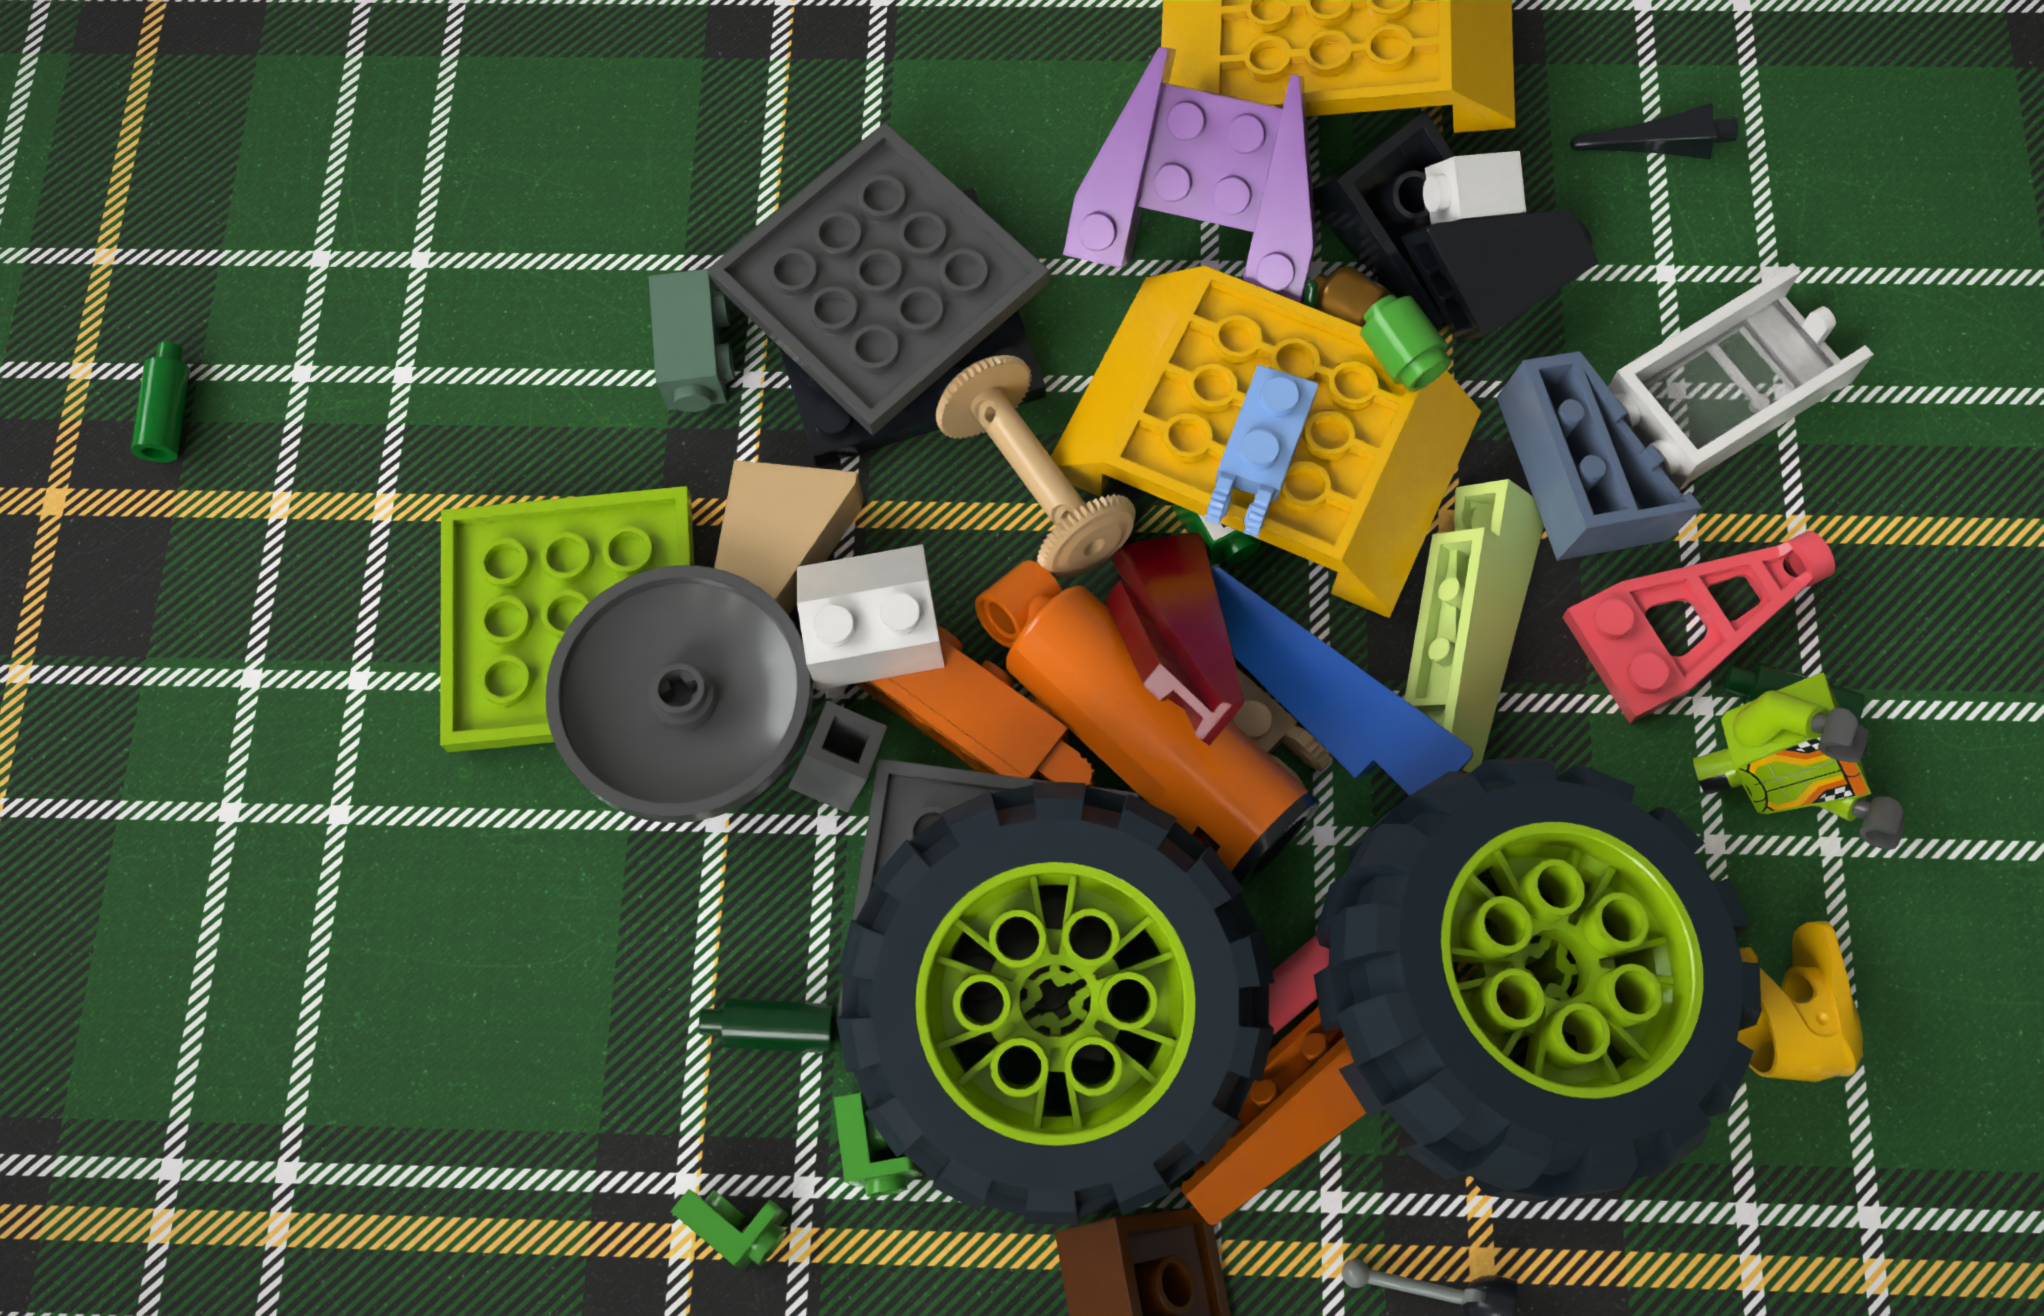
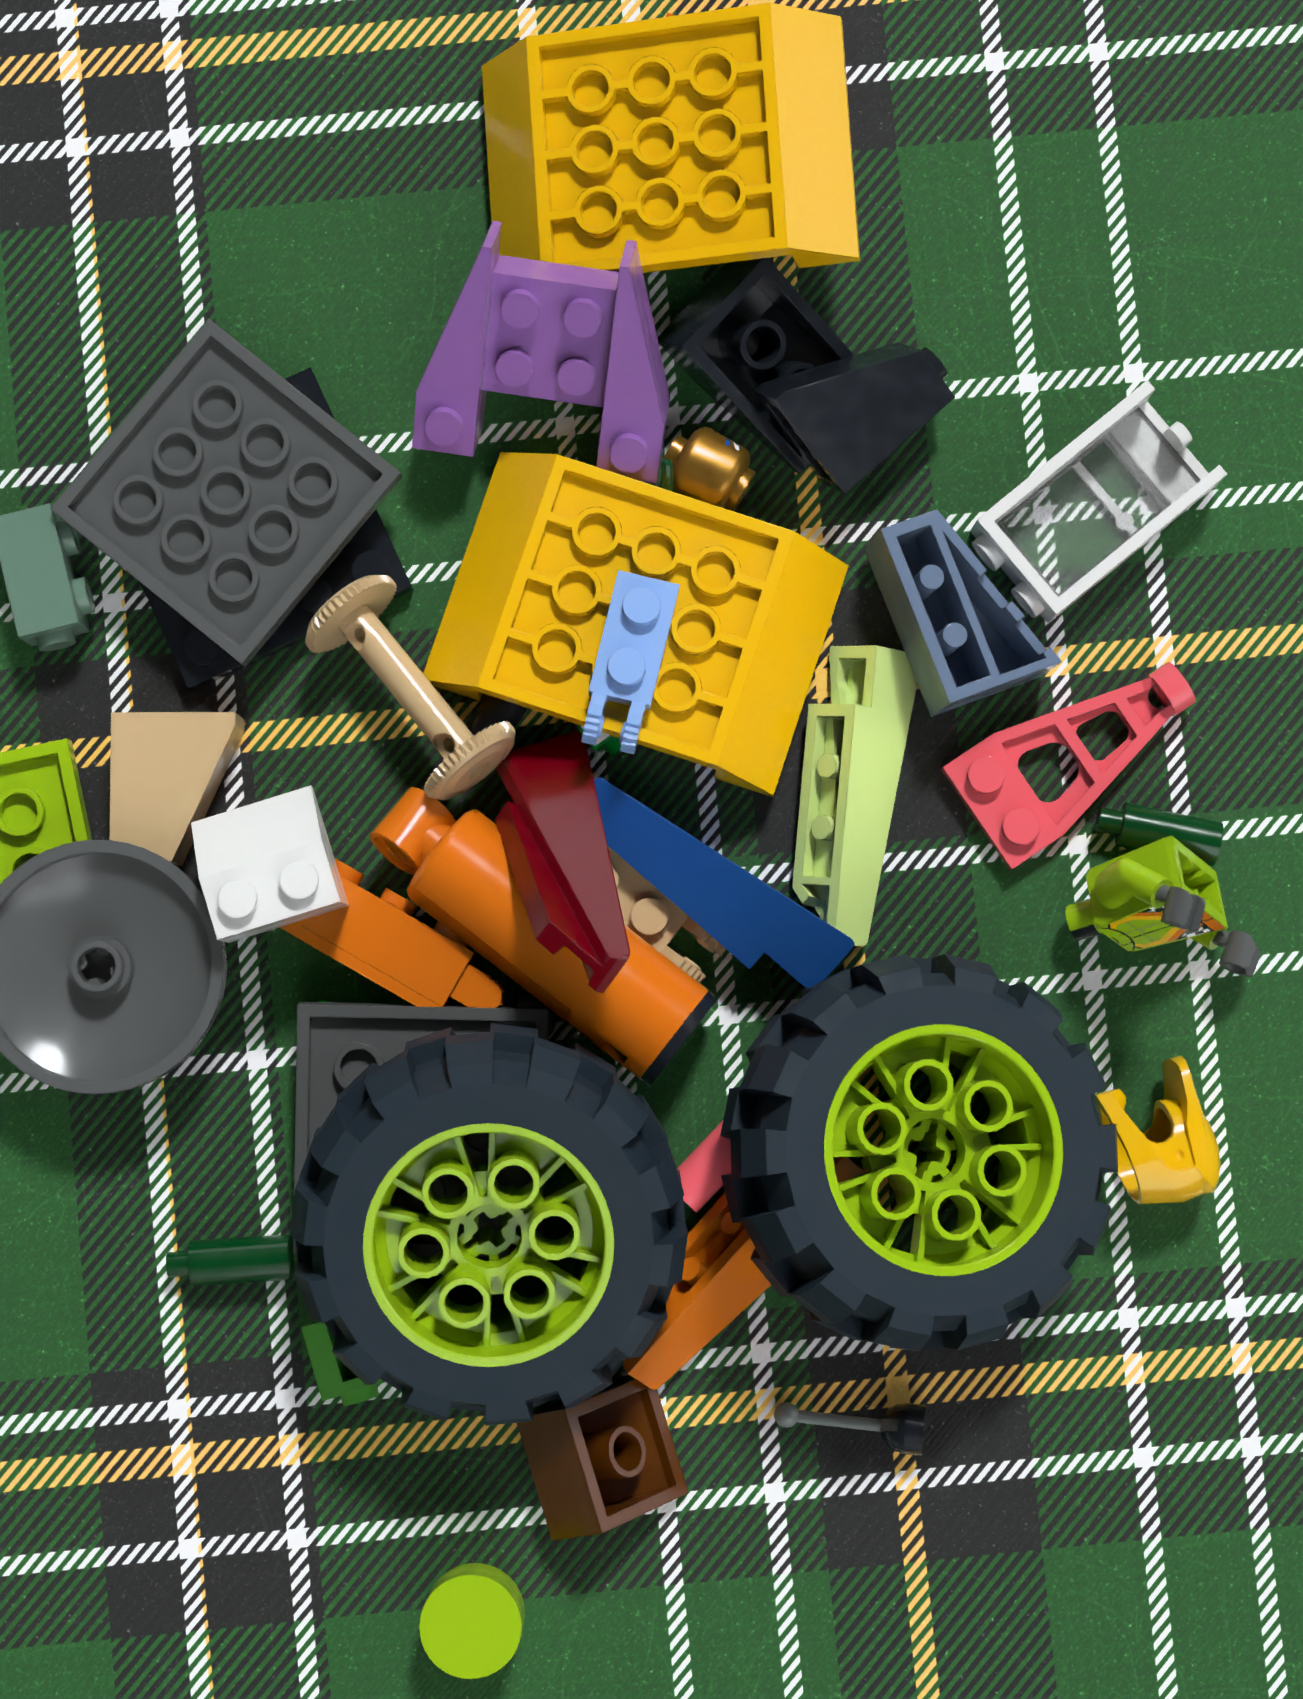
camera: 10 degrees left, 15 degrees up
(718, 1225) = (213, 1448): bright green bracket -> none
(837, 756) = (258, 1004): dark grey brick -> none
(1405, 342) = (761, 528): bright green brick -> none
(1474, 187) = (822, 338): white brick -> none
(1680, 134) = (1037, 225): black piece -> none

